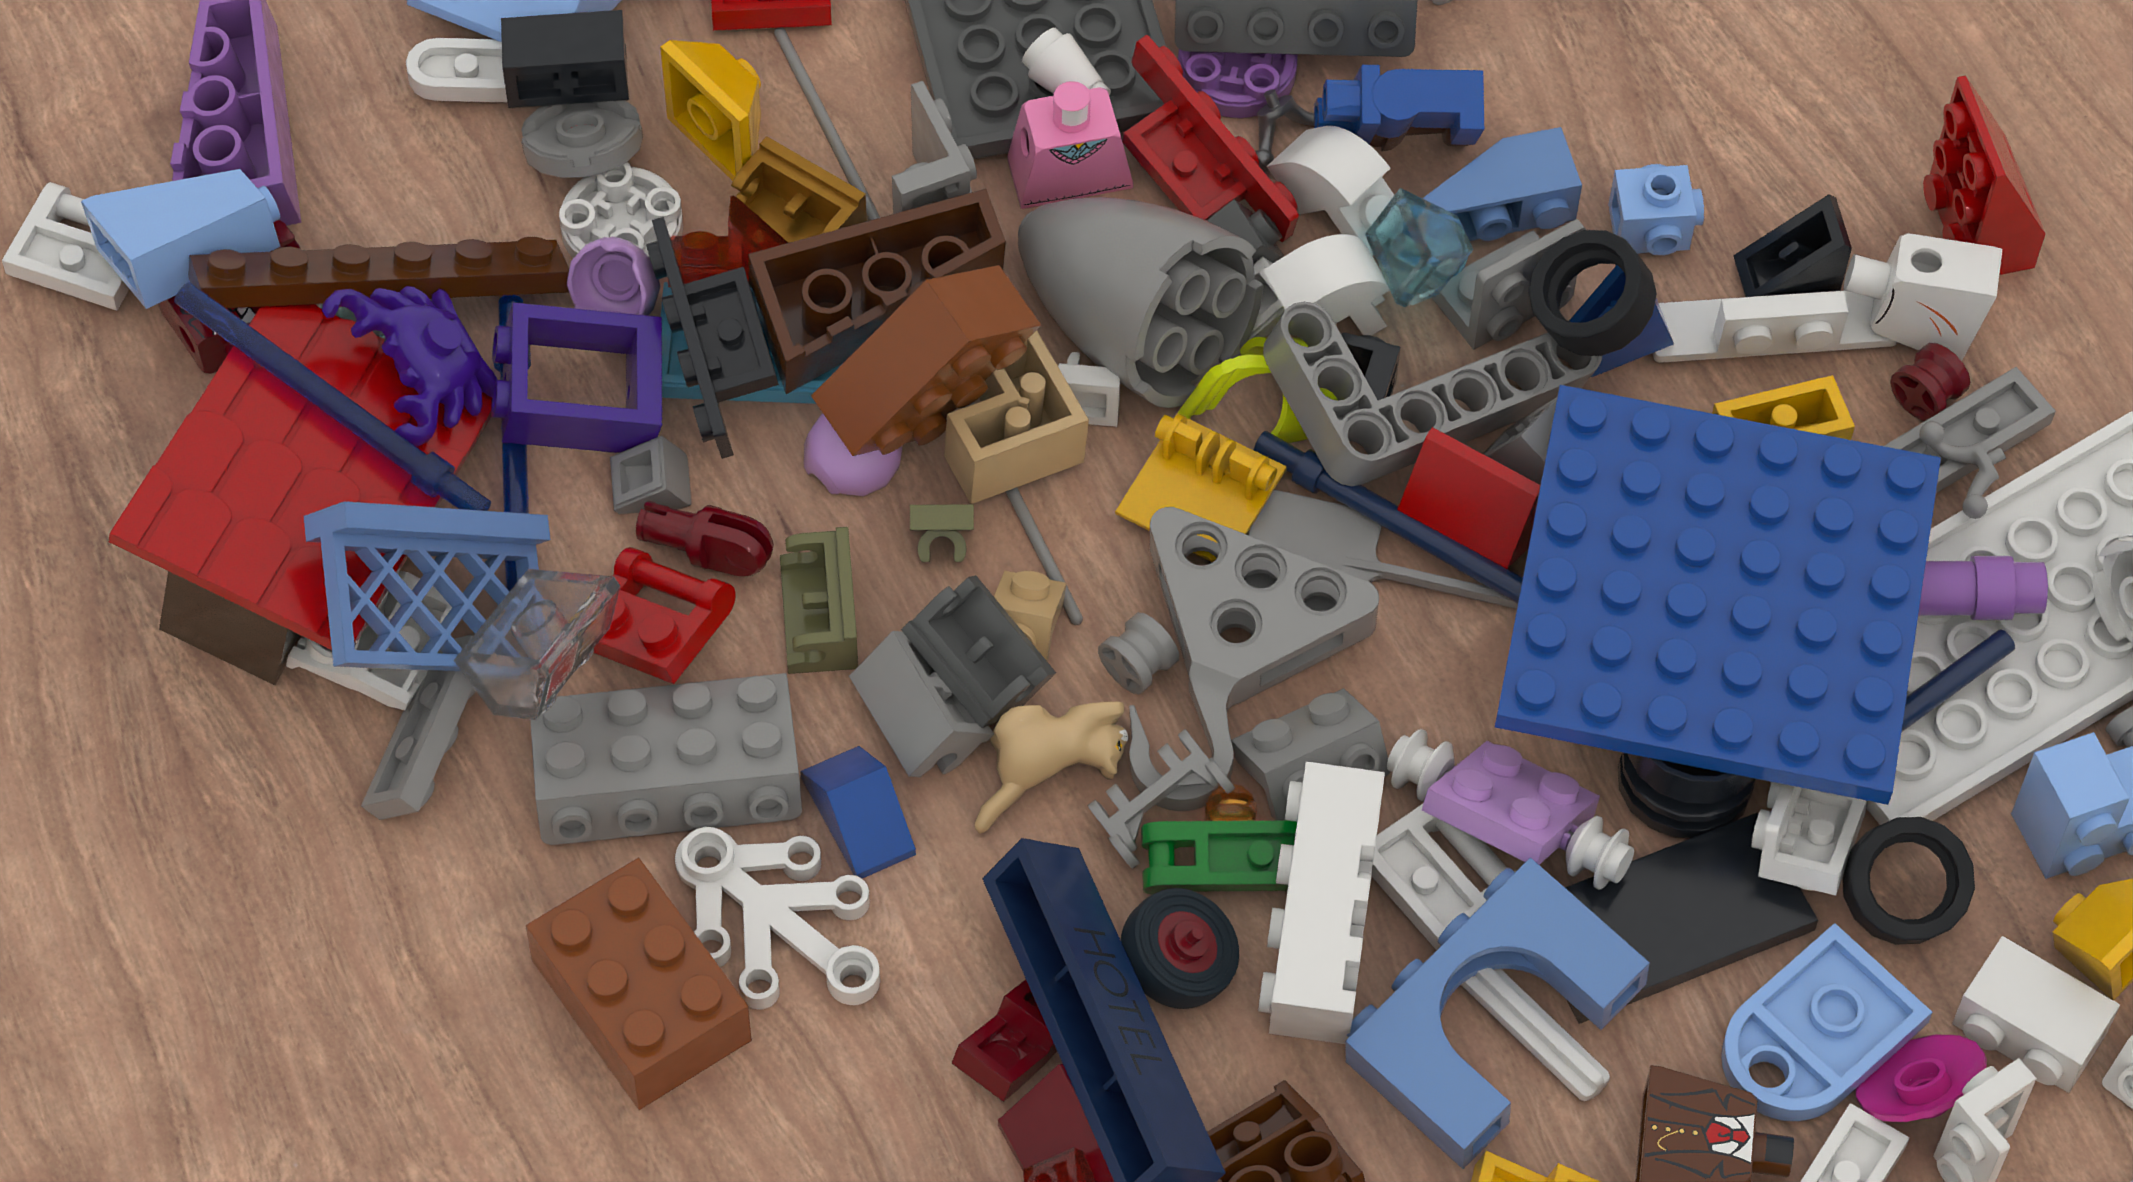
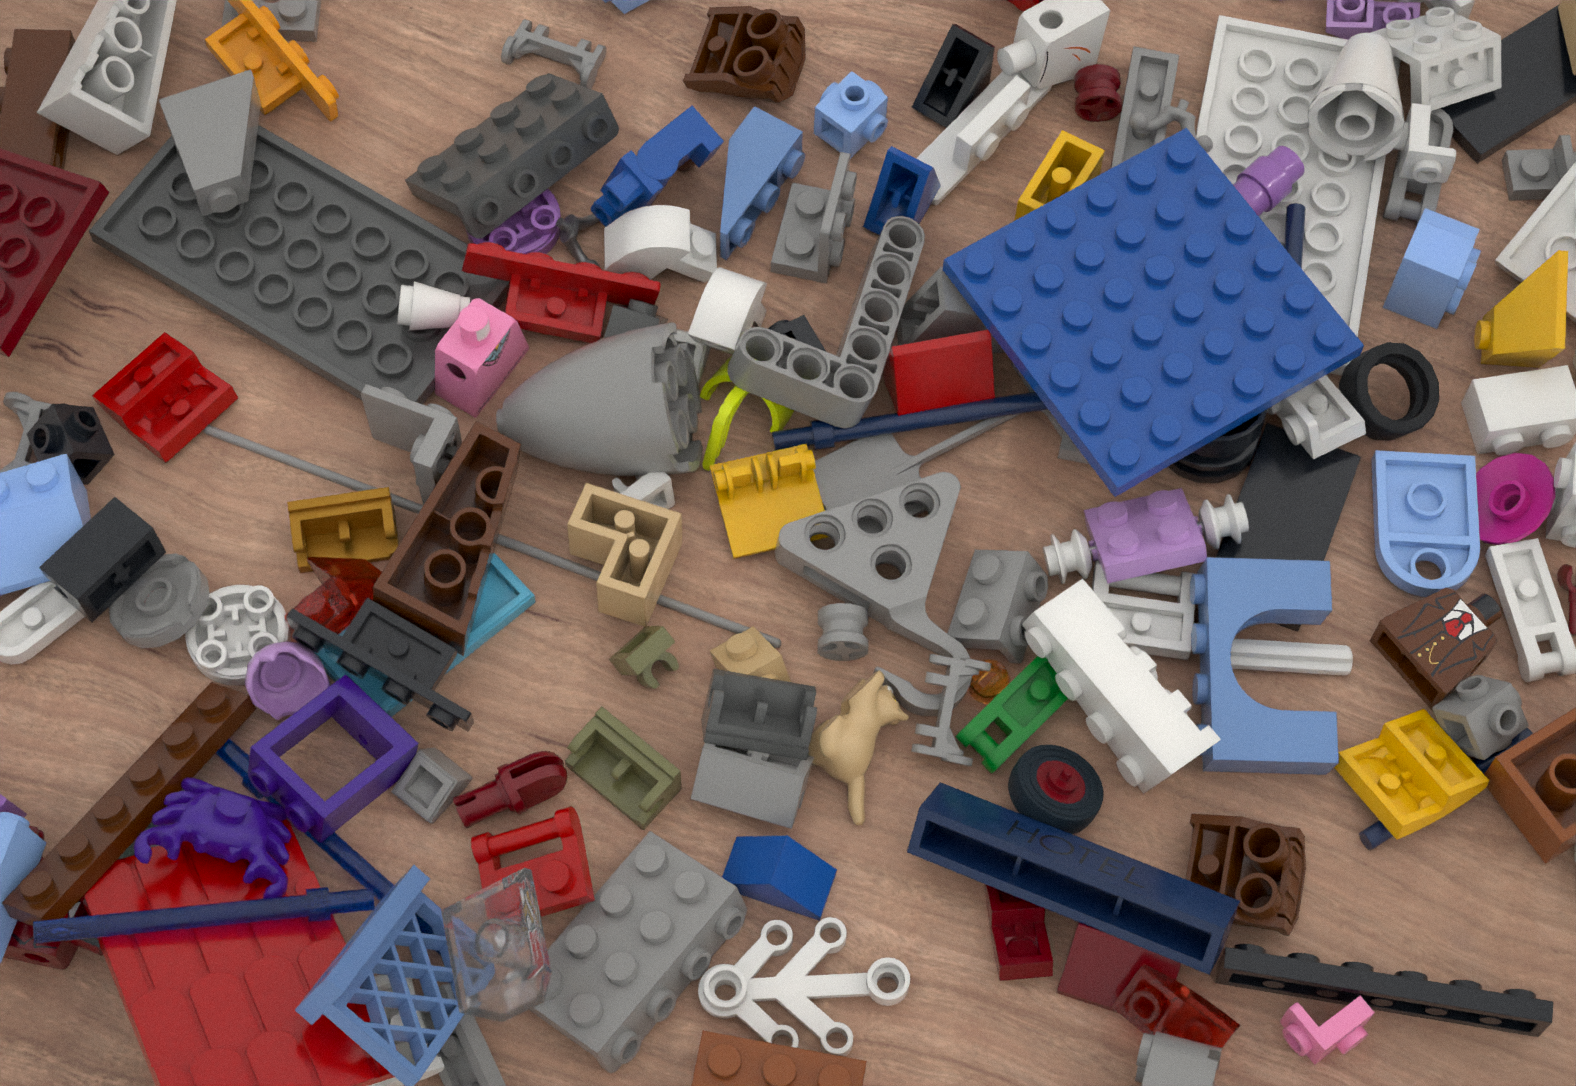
camera: 45 degrees left, 5 degrees up
(713, 101) = (232, 510): yellow slope -> none
(839, 470) = (539, 656): lavender hair -> none
(927, 361) = (563, 561): dark orange brick -> none
(1417, 247) = (755, 246): clear light blue slope -> none
(1565, 262) = (867, 165): black tyre -> none
(1619, 84) = (749, 54): none -> reddish brown slope

